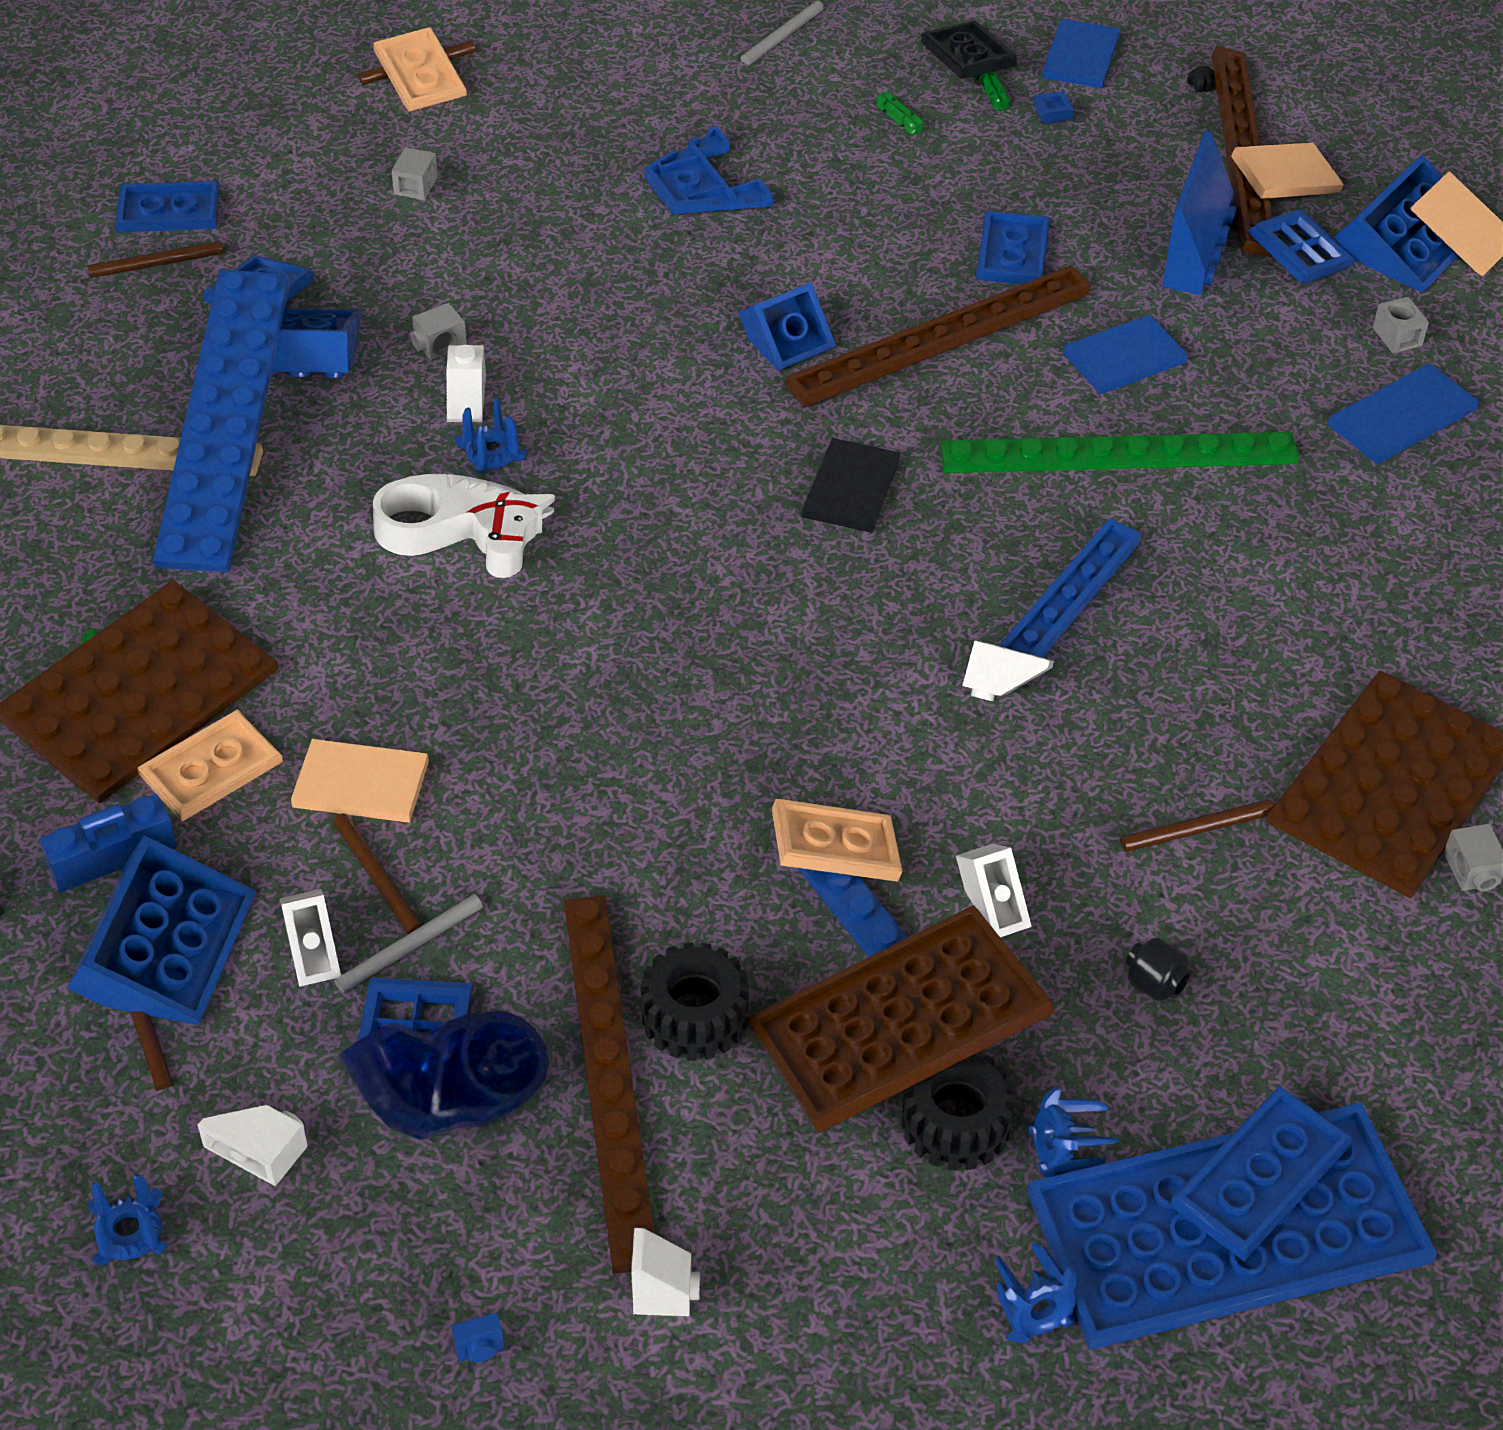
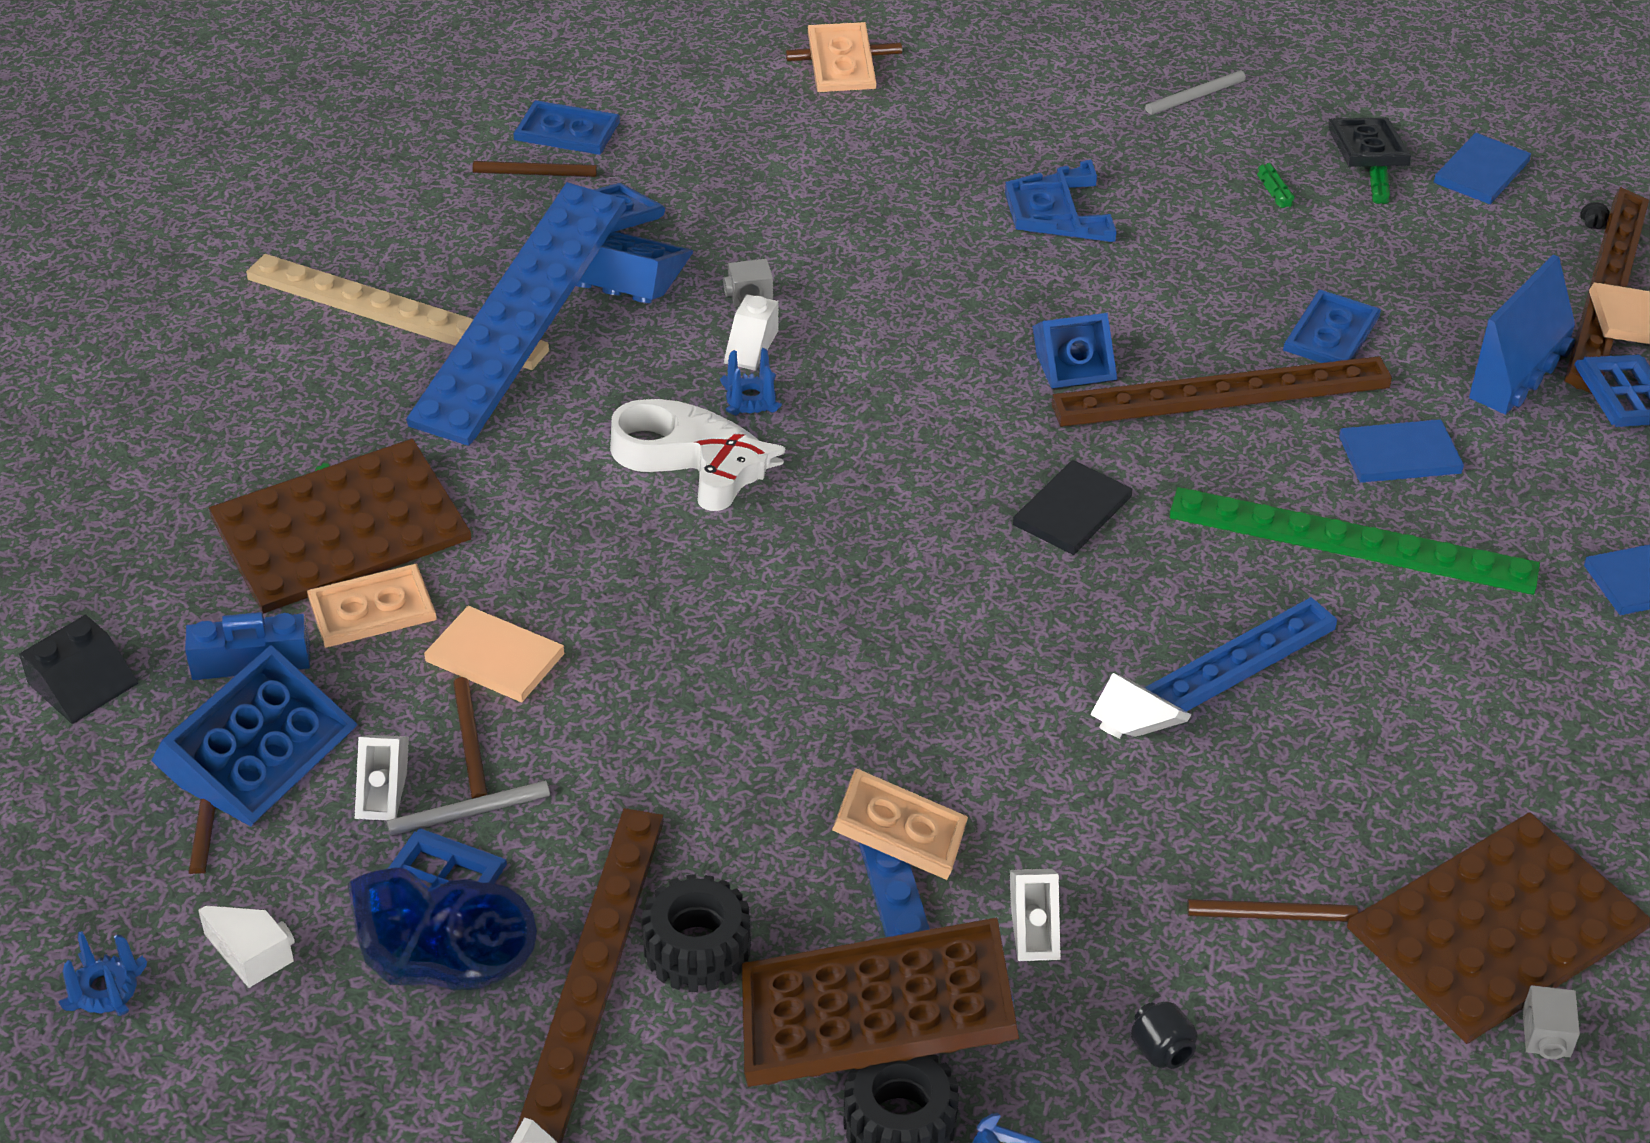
camera: 20 degrees right, 5 degrees down
(414, 173) = (793, 143): light grey brick -> none
(1053, 107) = (1430, 210): blue plate -> none

